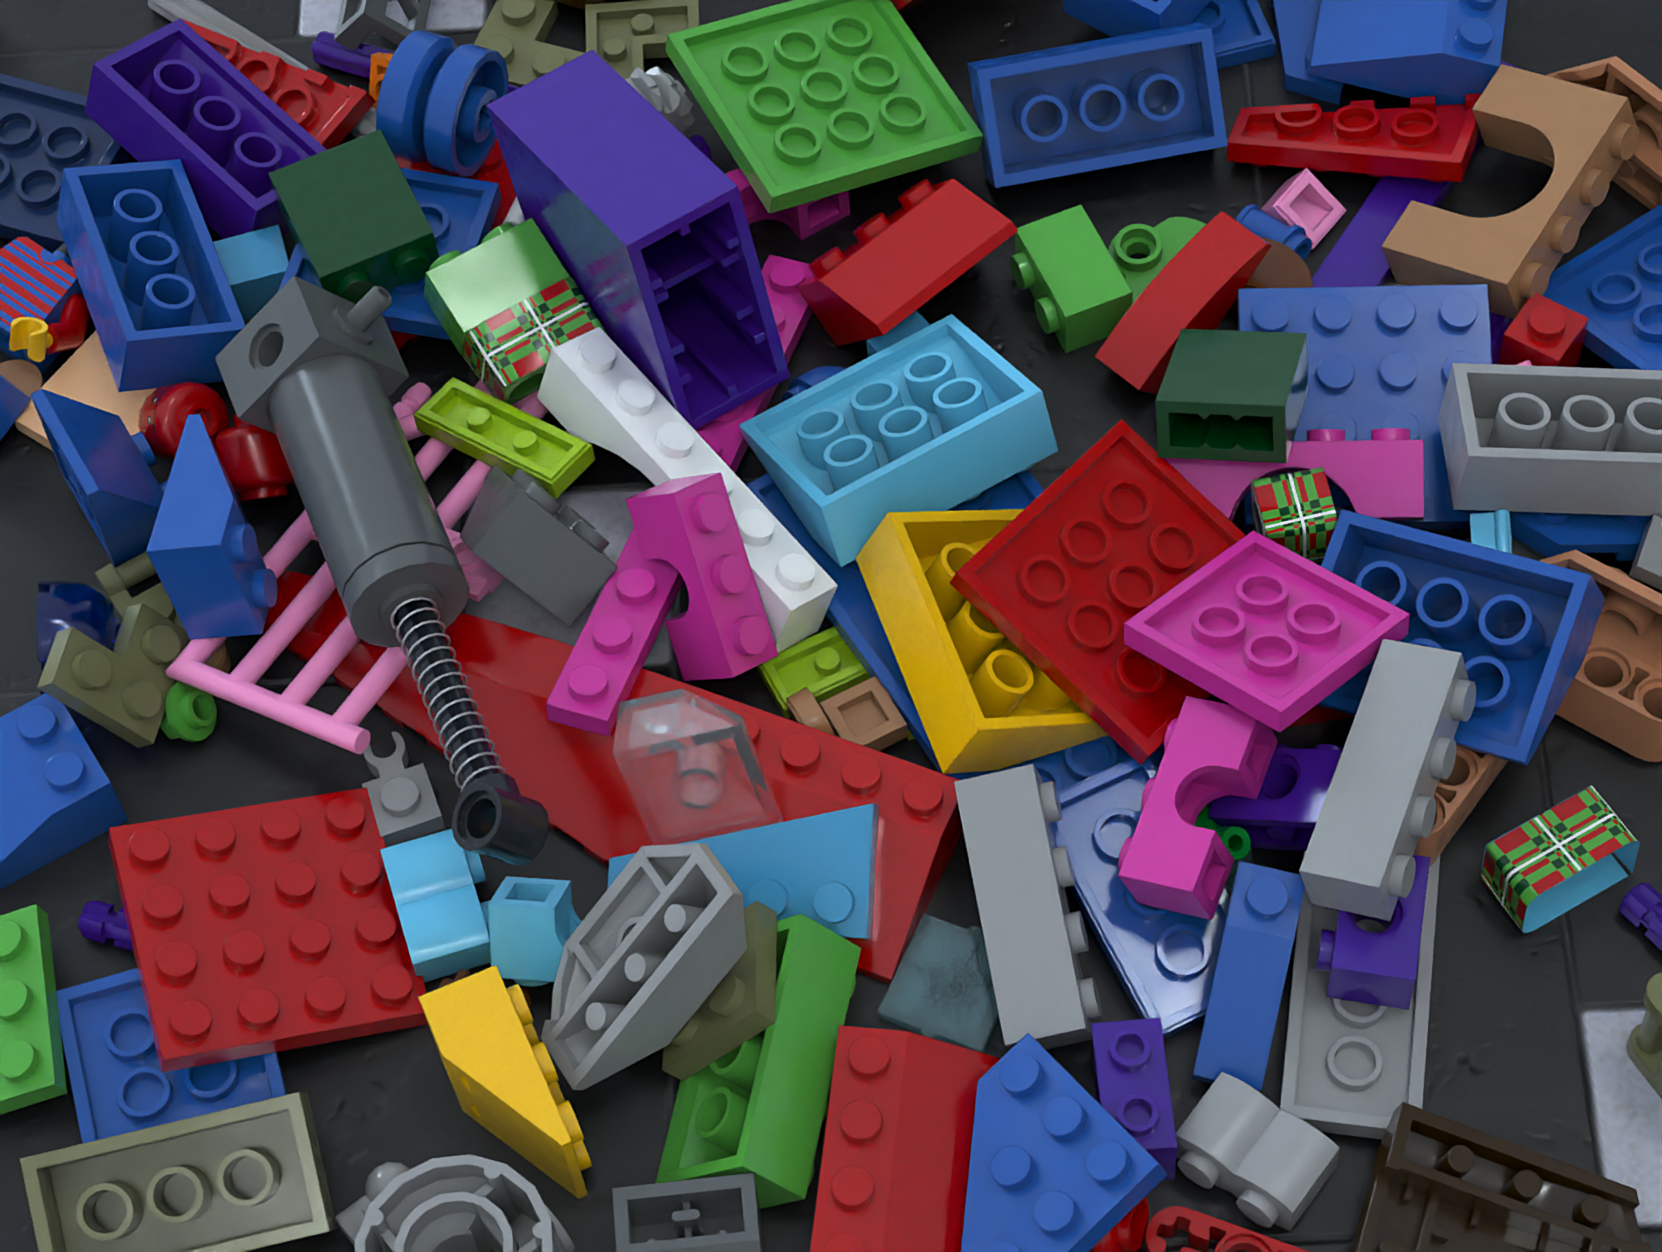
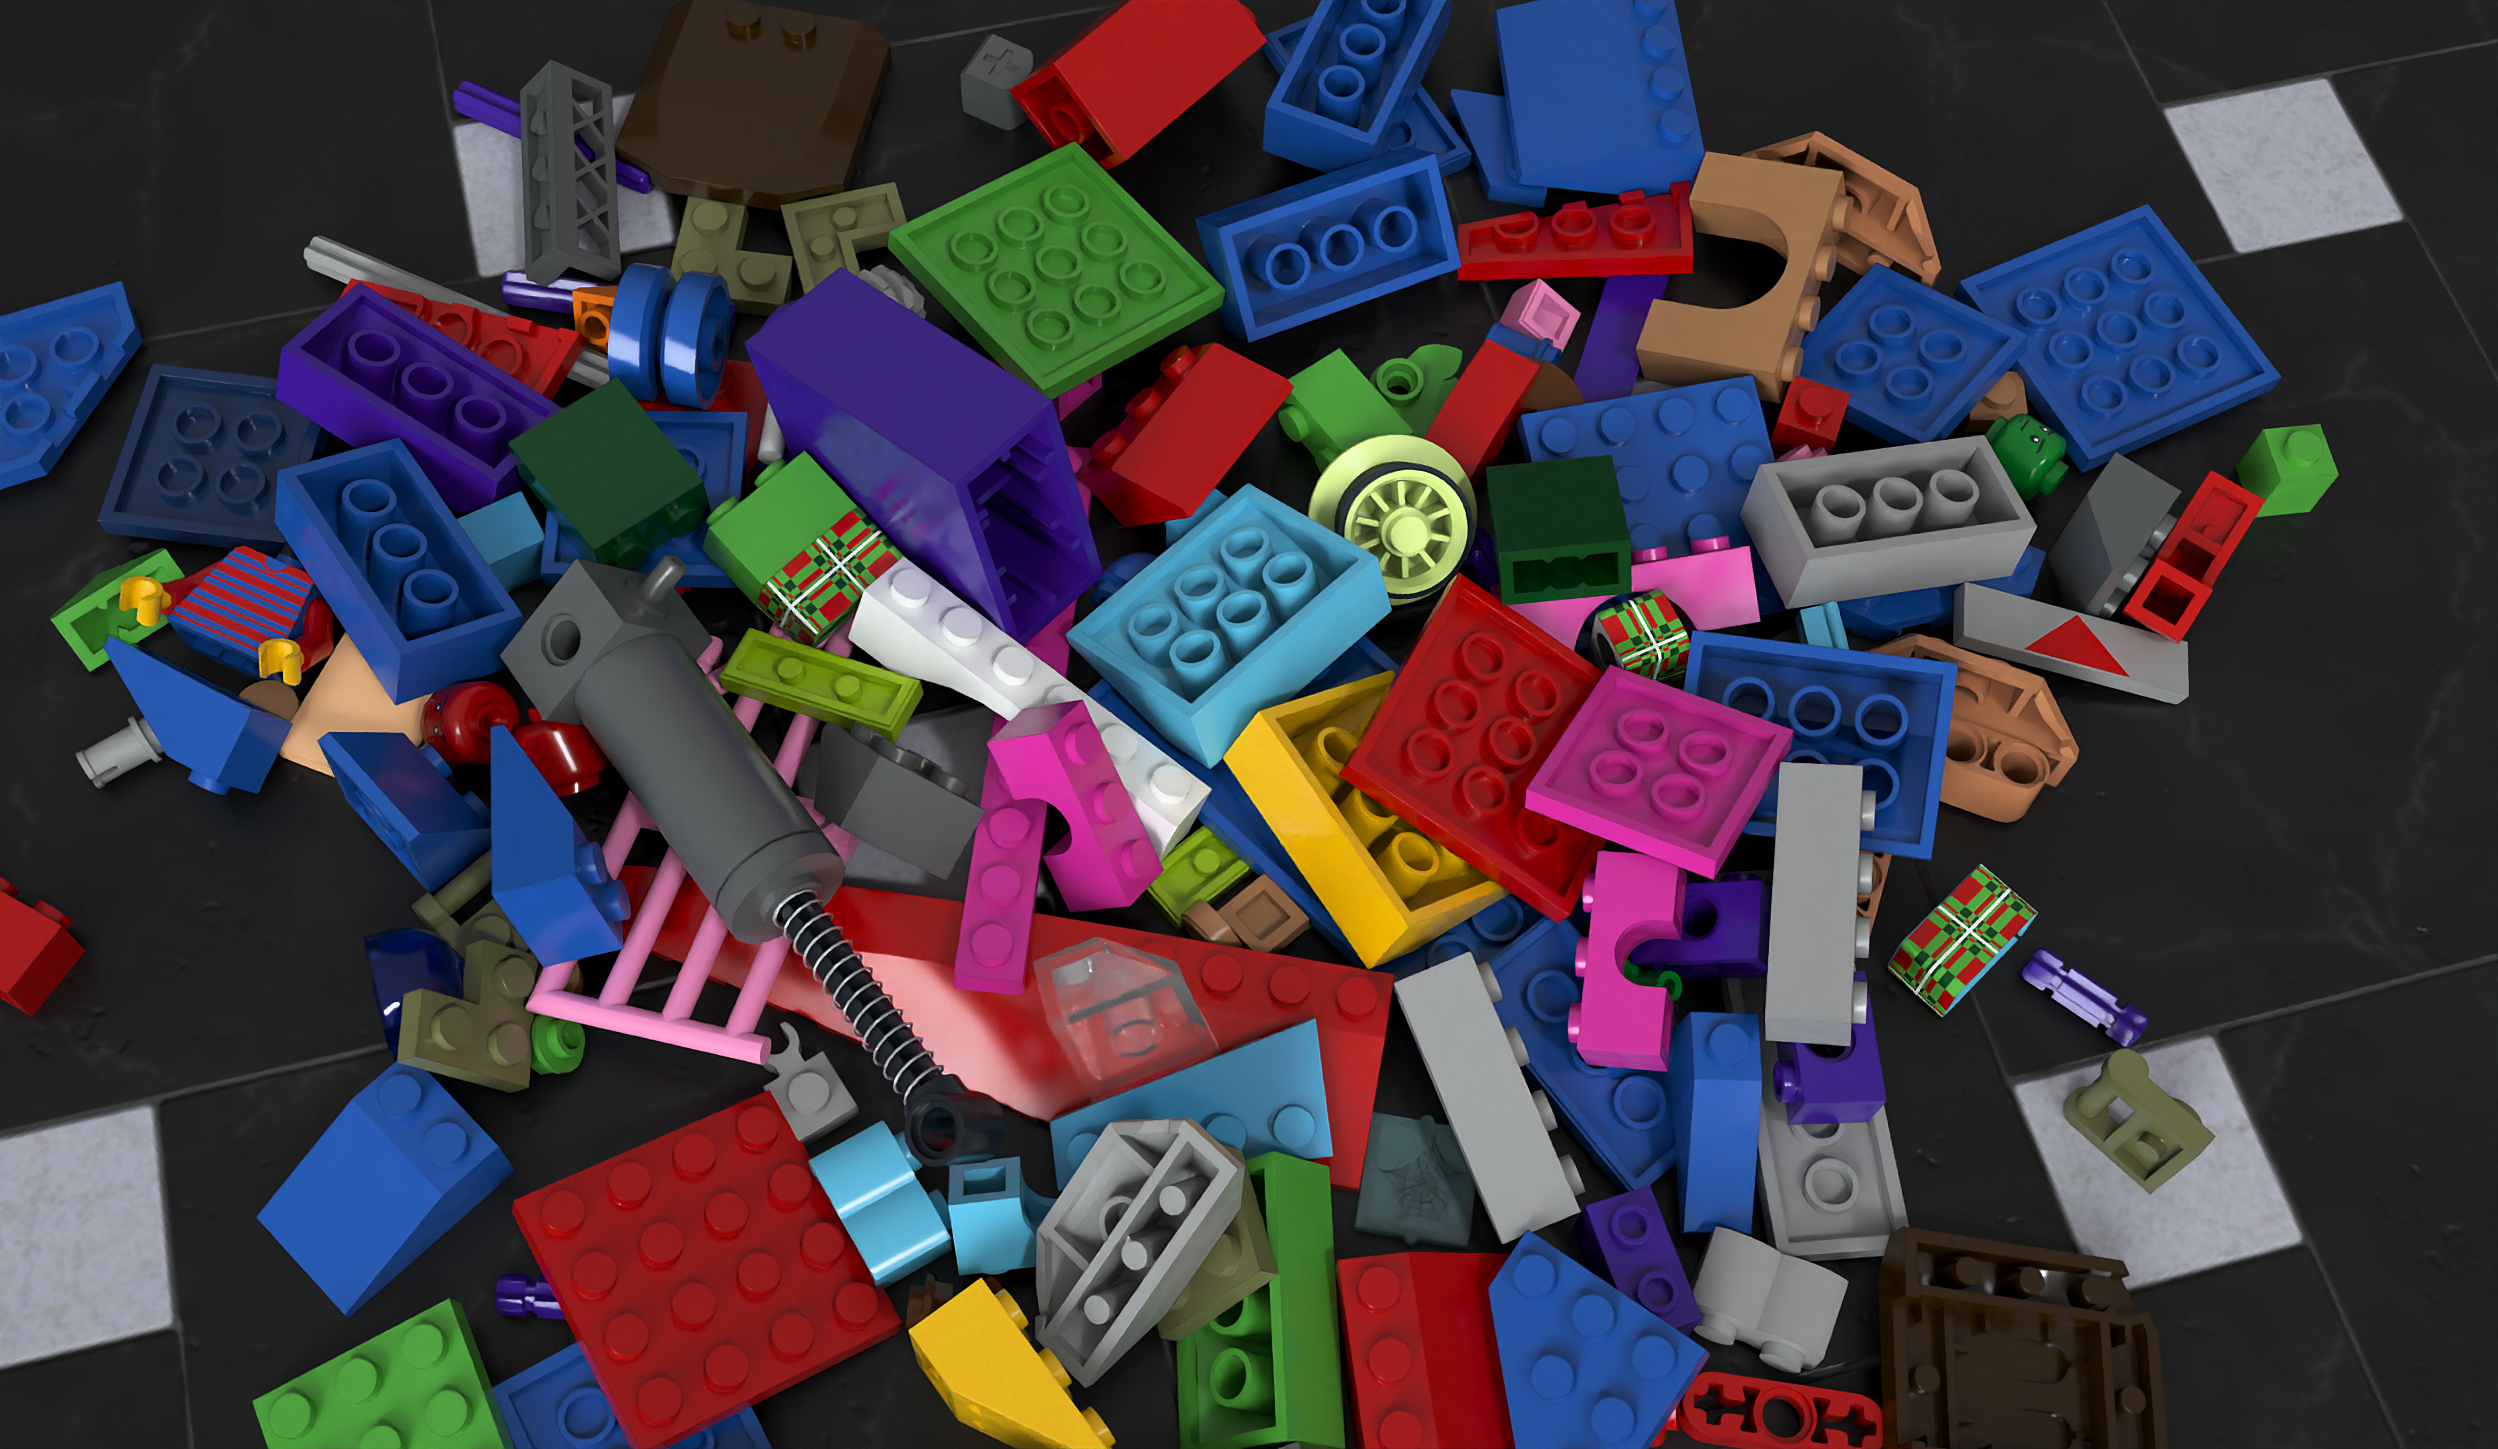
camera: 25 degrees left, 5 degrees up
(1094, 360) = (1402, 505): none -> yellowish green piece

